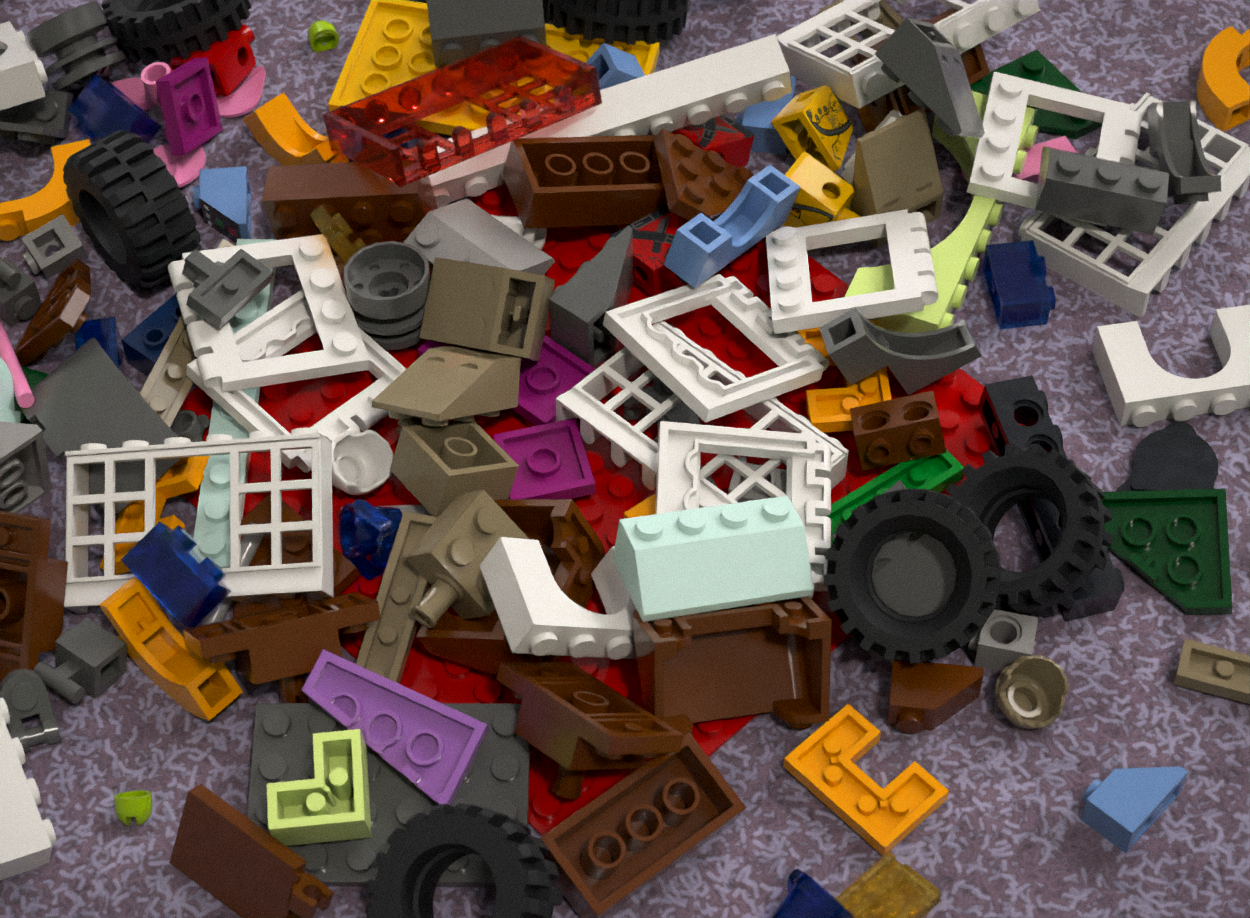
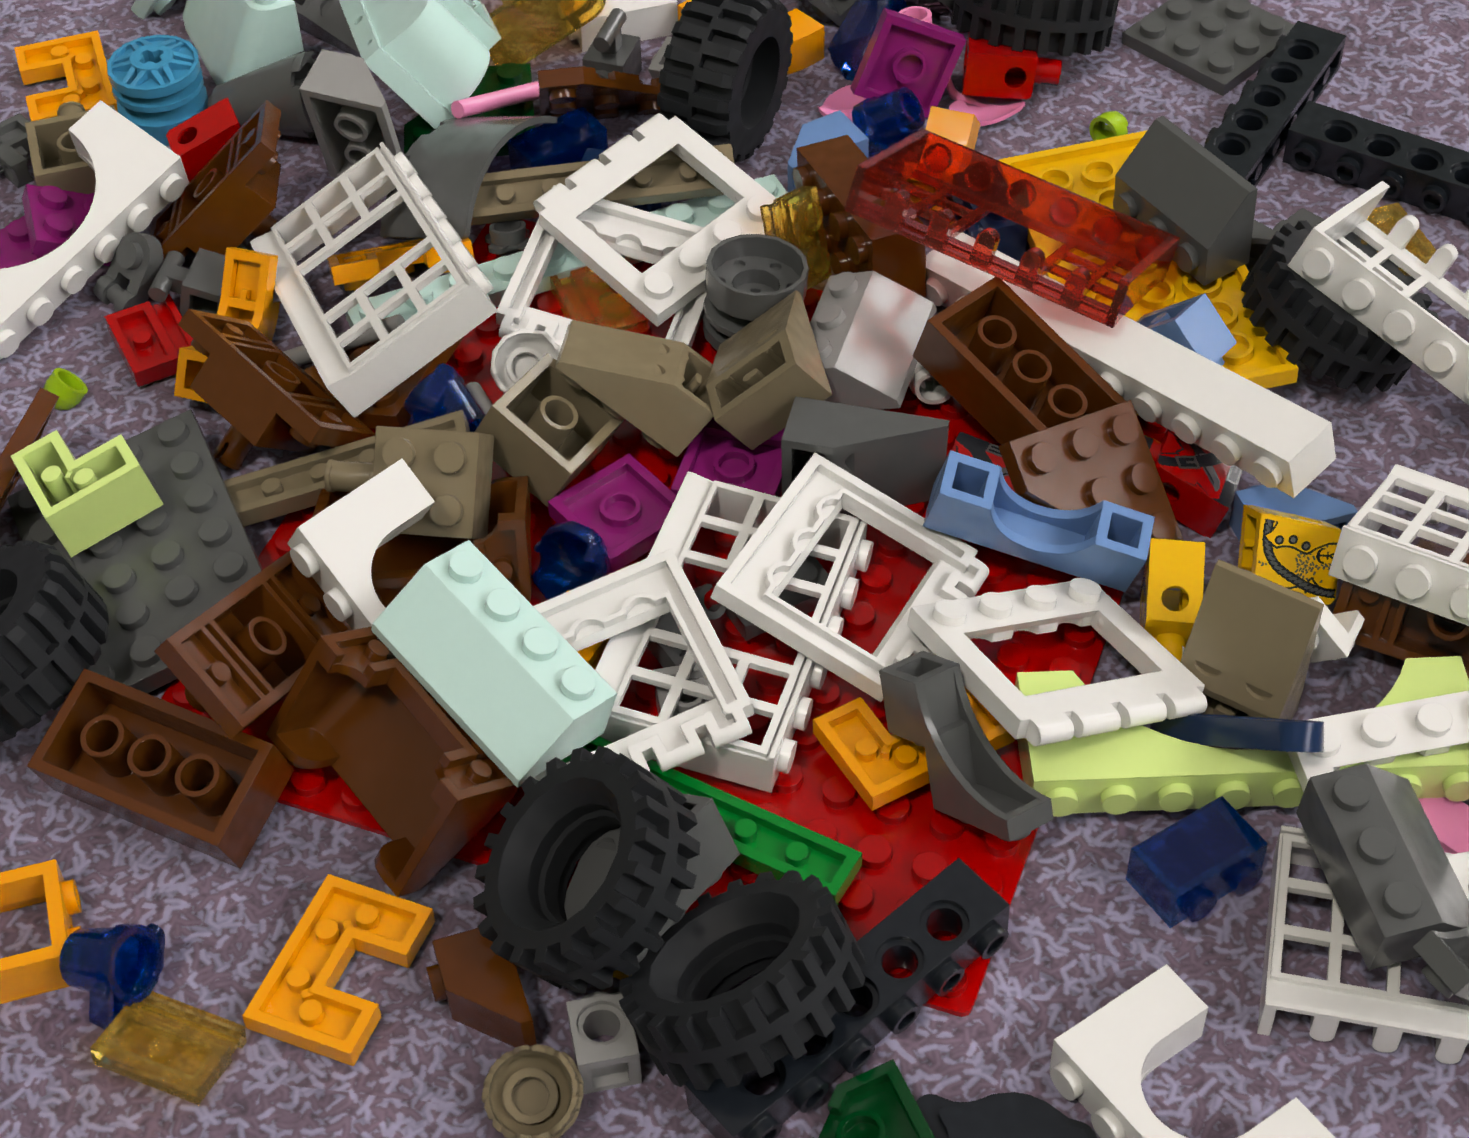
camera: 65 degrees right, 5 degrees down
(117, 722) = (149, 339): none -> red plate
(176, 574) = (287, 278): clear blue brick -> none
(224, 287) = (647, 156): dark grey hinge -> none
(230, 147) = (888, 118): none -> clear blue piece
(303, 401) = (591, 300): none -> clear yellow plate
(406, 729) = (192, 515): medium lavender wing -> none
(595, 501) = (569, 558): none -> clear blue hair
(897, 430) = (842, 801): reddish brown brick -> none
(934, 74) = (1379, 595): dark grey slope -> none
(969, 198) = (1246, 732): none -> dark blue beam

